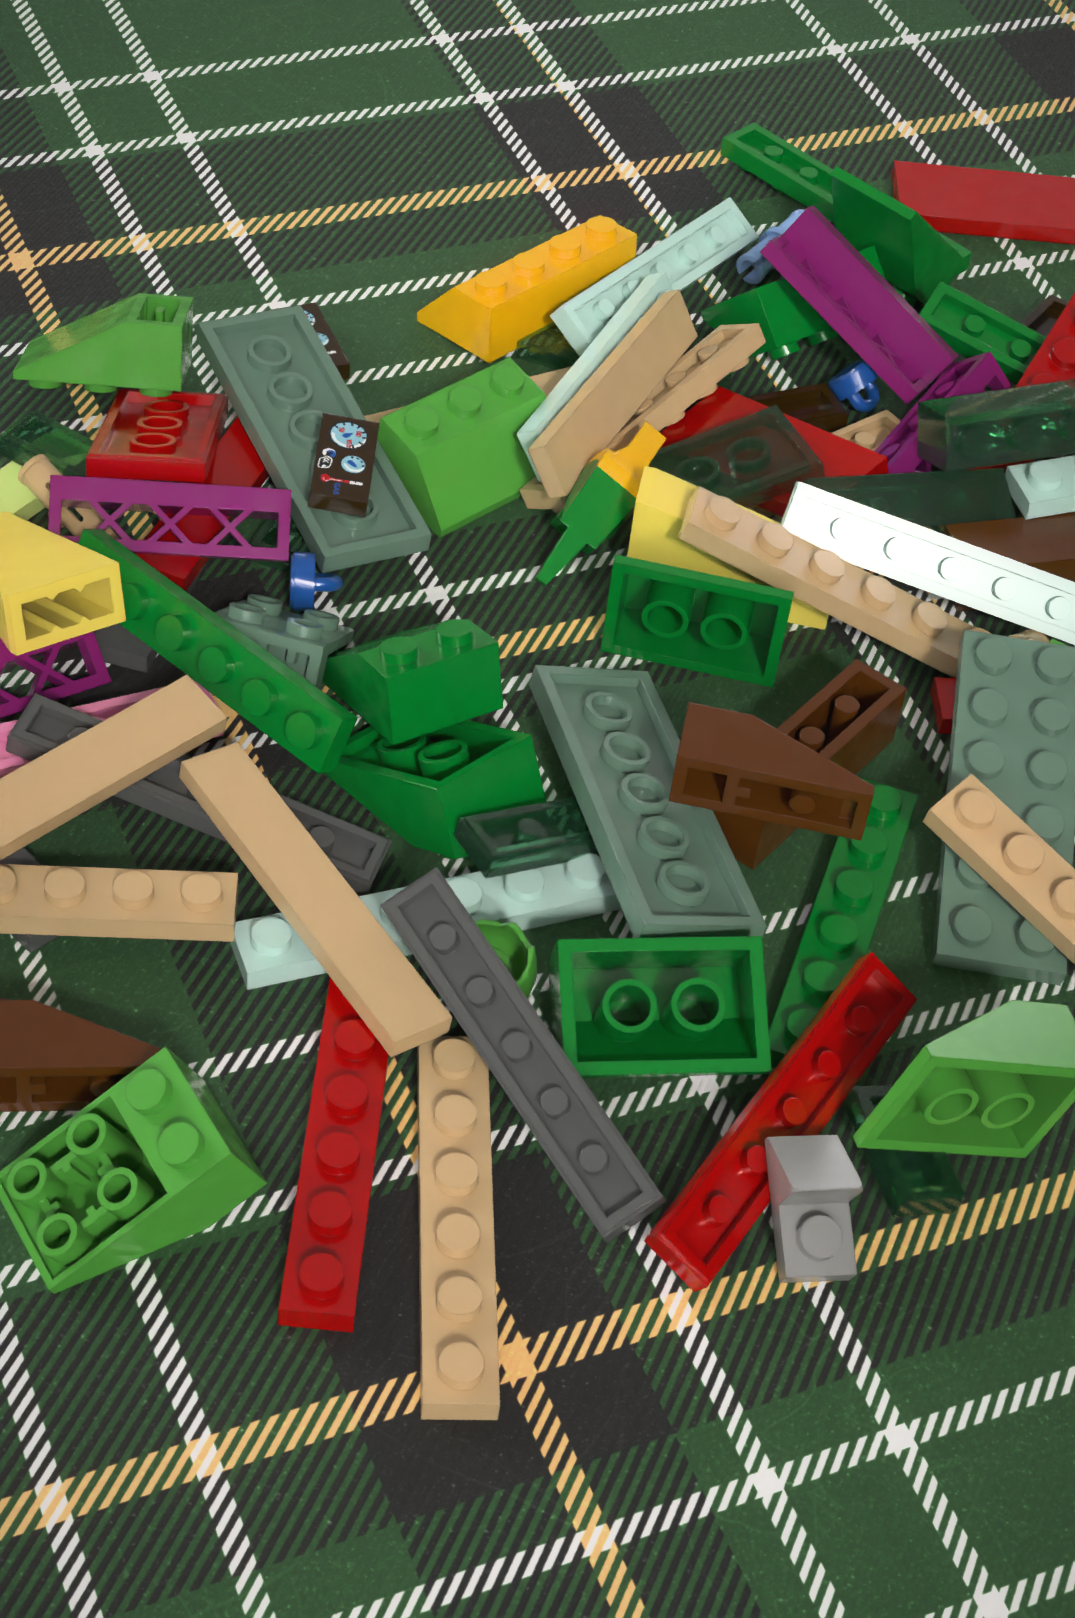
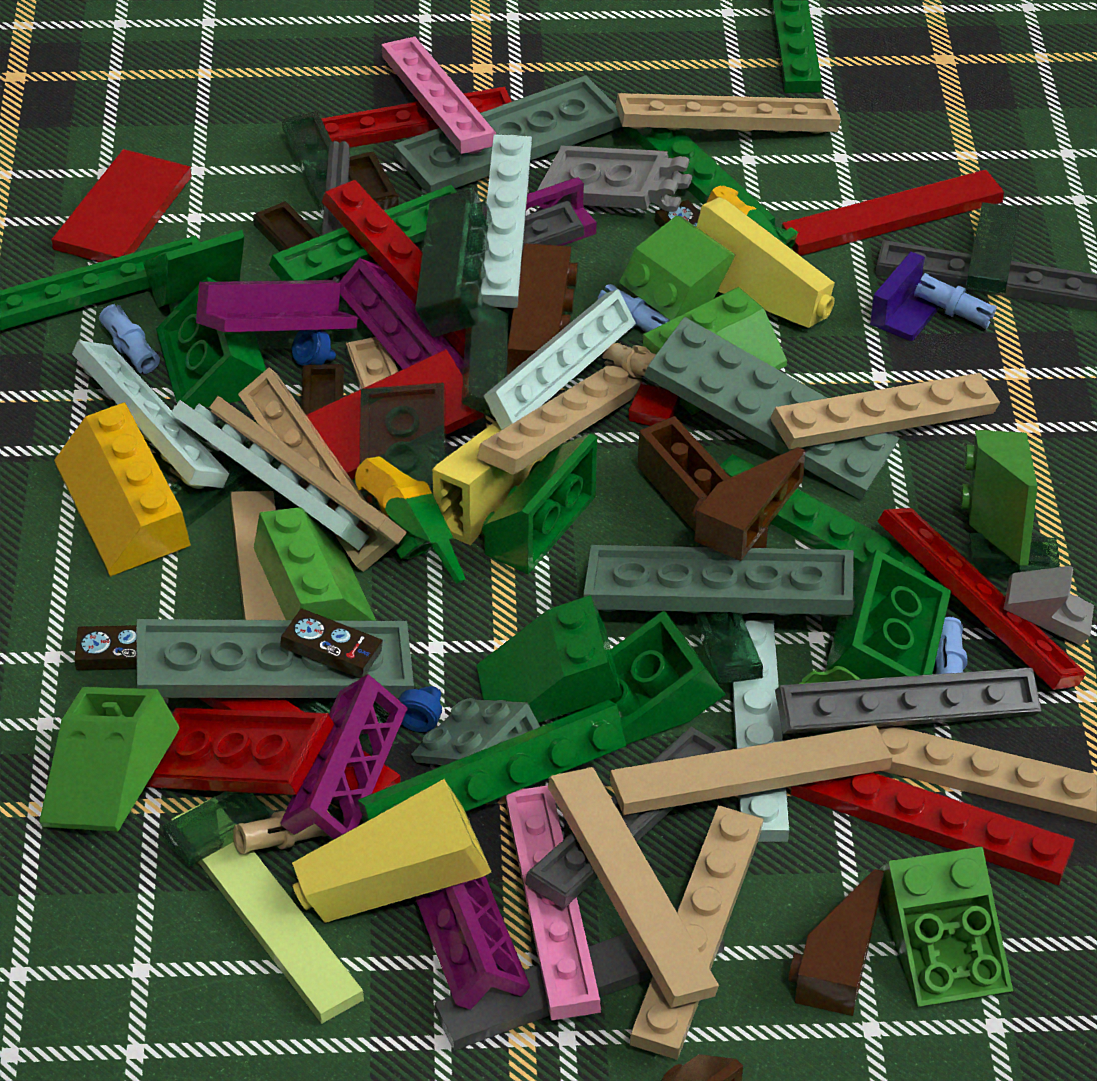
camera: 65 degrees left, 0 degrees up
(664, 1104) = (950, 653): none -> light blue pin

